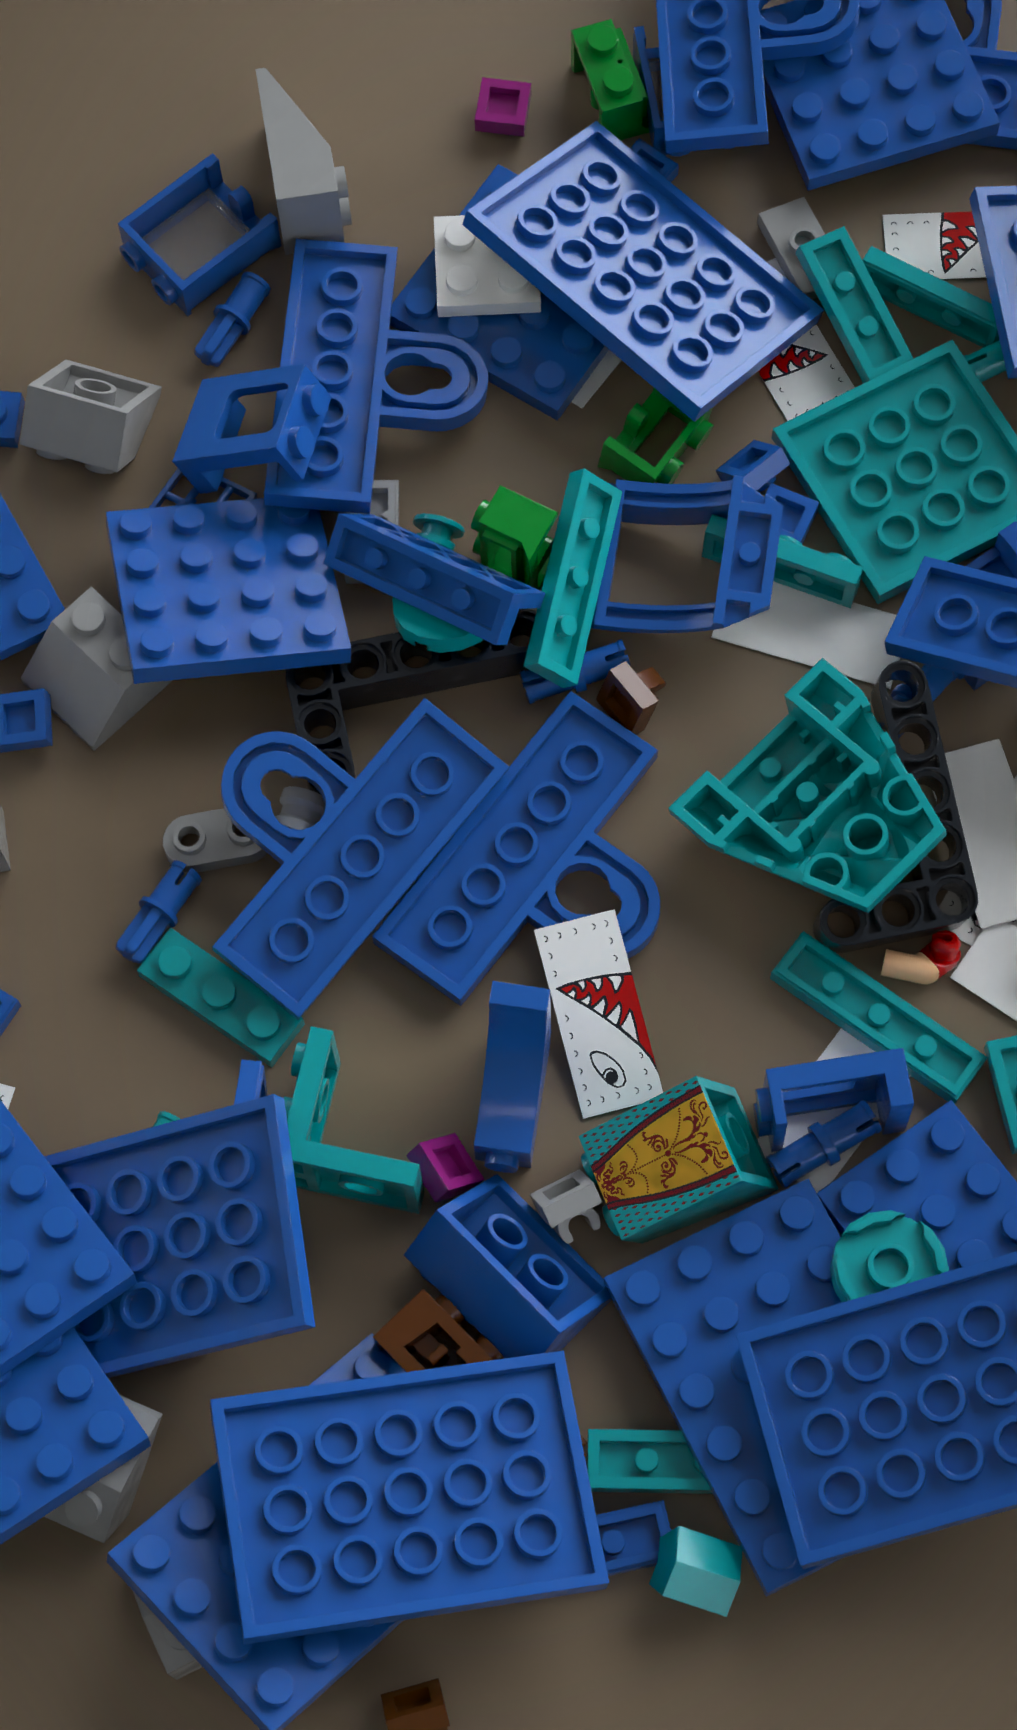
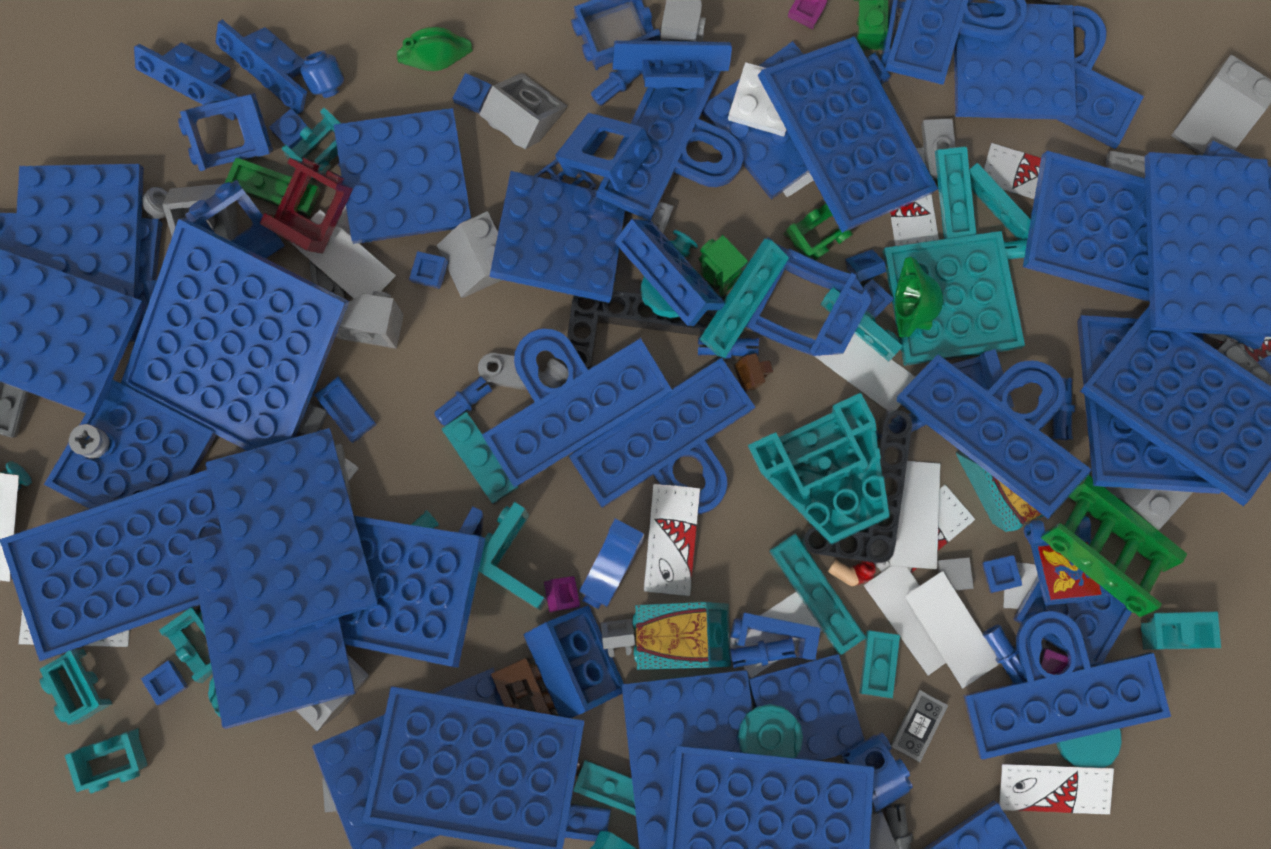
camera: 15 degrees right, 10 degrees up
(312, 253) = (672, 62): none -> blue bracket
(855, 484) = (916, 299): none -> green hat

